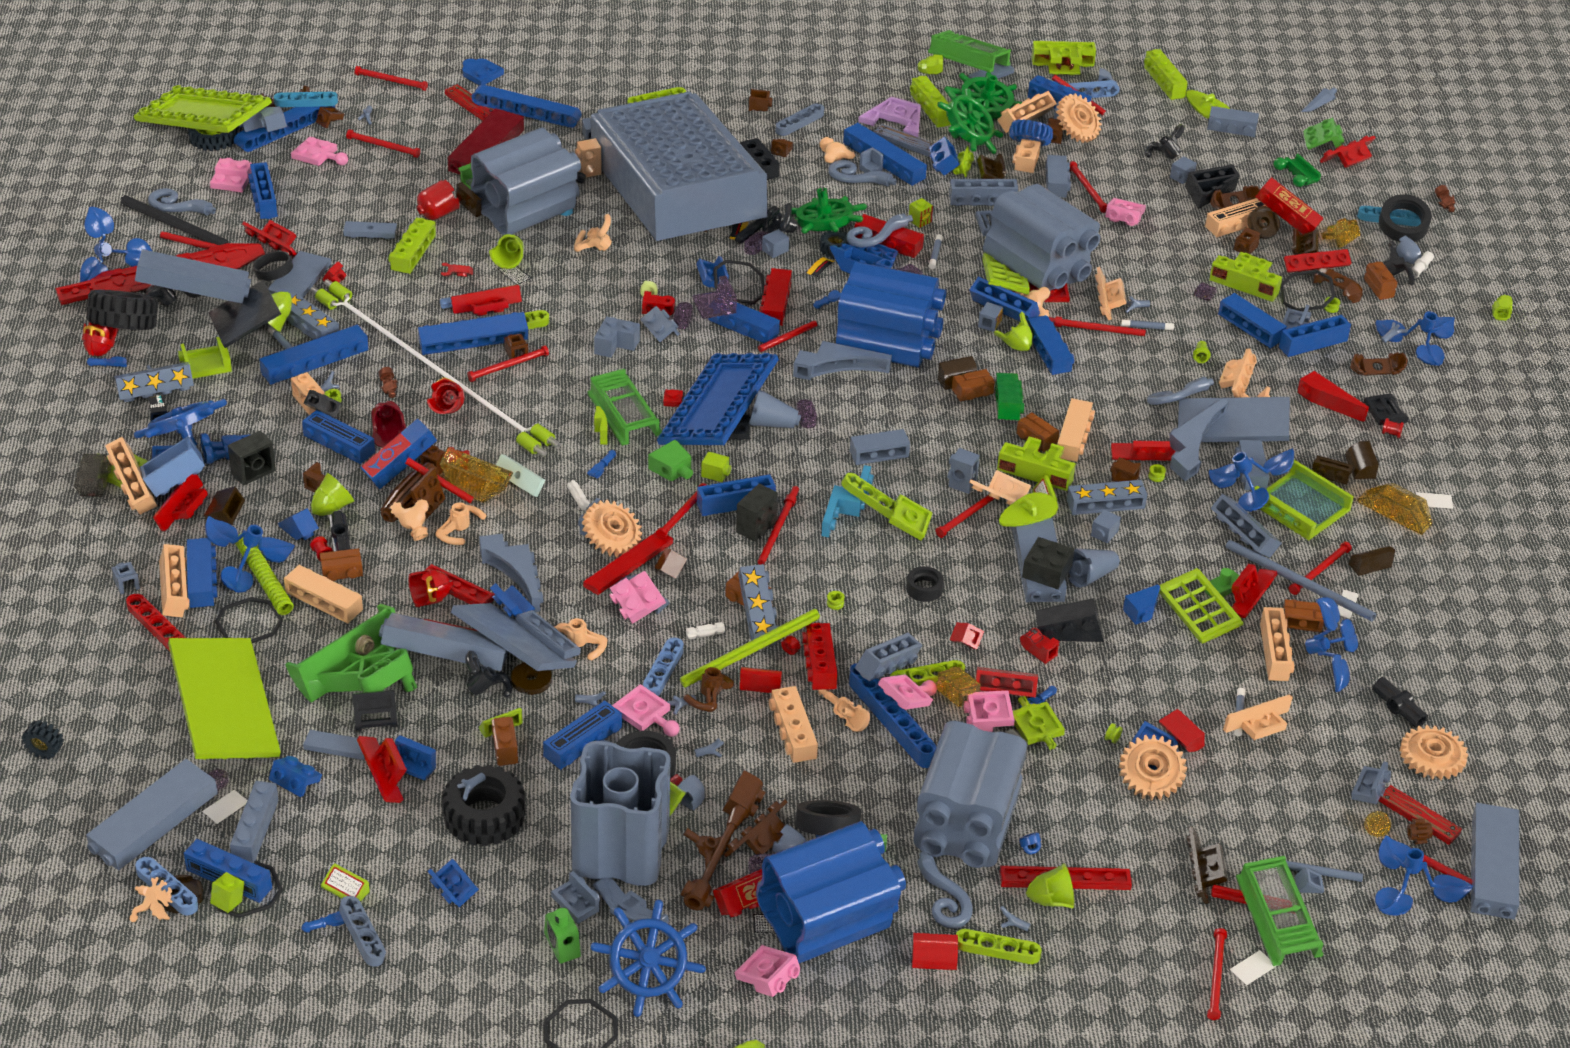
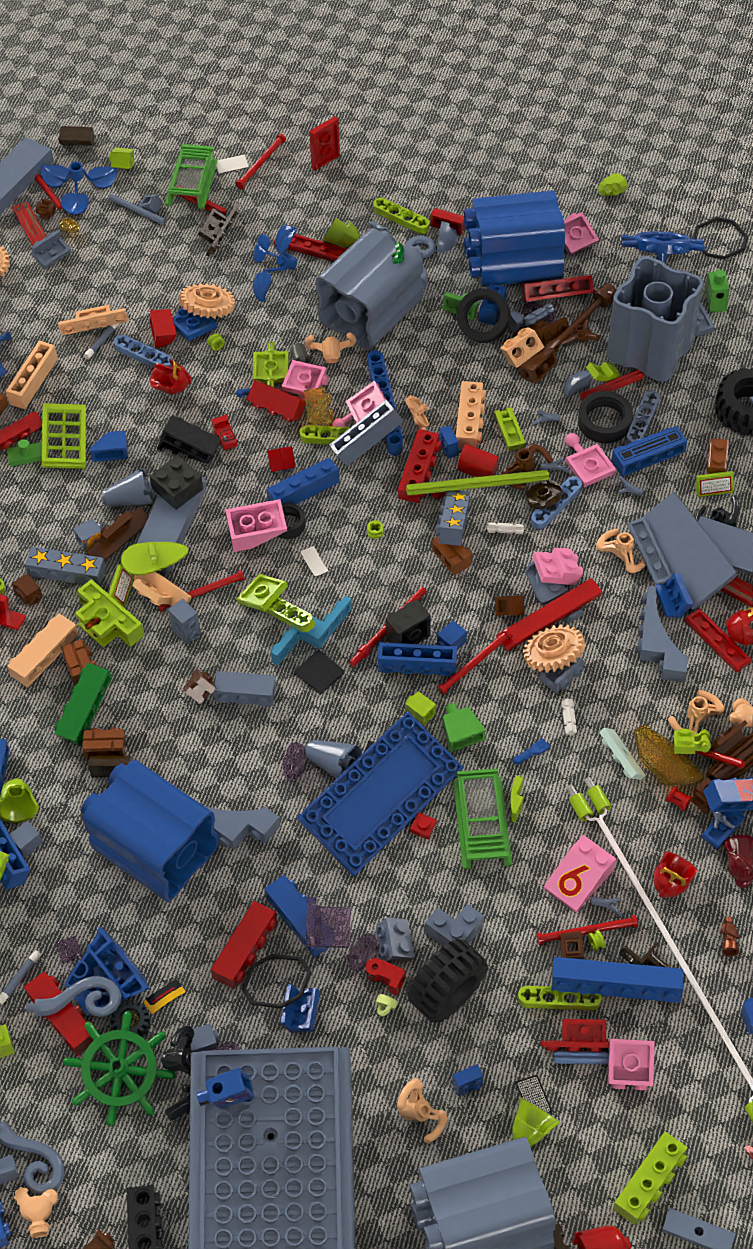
camera: 155 degrees left, 15 degrees up
(445, 288) = (631, 1063): none -> bright pink plate
(455, 353) = (650, 958): none -> dark brown bracket
(461, 270) = (601, 1111): red plate -> none
(464, 484) = (687, 742): none -> lime plate
(495, 382) = (608, 903): none -> sand blue bar
(497, 355) = (596, 940): none -> lime bush
(524, 395) = (580, 873): none -> bright pink slope
(567, 261) = (467, 1080): none -> blue piece
(604, 284) = (447, 980): none -> black tyre
(669, 666) = (552, 494): none -> dark brown tile
(713, 524) = (452, 635): none -> blue brick
(725, 148) = (227, 1089): none -> blue torso
(745, 724) = (509, 429): none -> lime plate
(765, 844) = (539, 314): none -> sand blue axle
(767, 794) = (523, 351): none -> light nougat brick
(787, 336) = (255, 885): red bar -> none
(805, 687) = (449, 441): none -> blue piece
(821, 480) = (319, 672): none -> black piece
(832, 297) = (178, 933): blue piece -> none
(878, 563) = (314, 561): none -> white sticker
(918, 431) = (199, 685): none -> brick
(926, 924) = (447, 238): none -> sand blue brick
(930, 611) = (305, 483): none -> blue brick
(948, 781) = (398, 255): none -> green piece
(954, 559) = (255, 524): none -> bright pink slope
(1080, 528) = (118, 533): none -> reddish brown bracket
(1098, 837) = (285, 261): none -> blue plant
(1130, 673) = (170, 379): none -> red helmet
(1142, 982) = (324, 143): none -> red tile
(1184, 704) = (144, 351): none -> medium blue beam
(1384, 918) = (122, 158): none -> lime brick
(1463, 935) = (76, 136): none -> dark brown brick

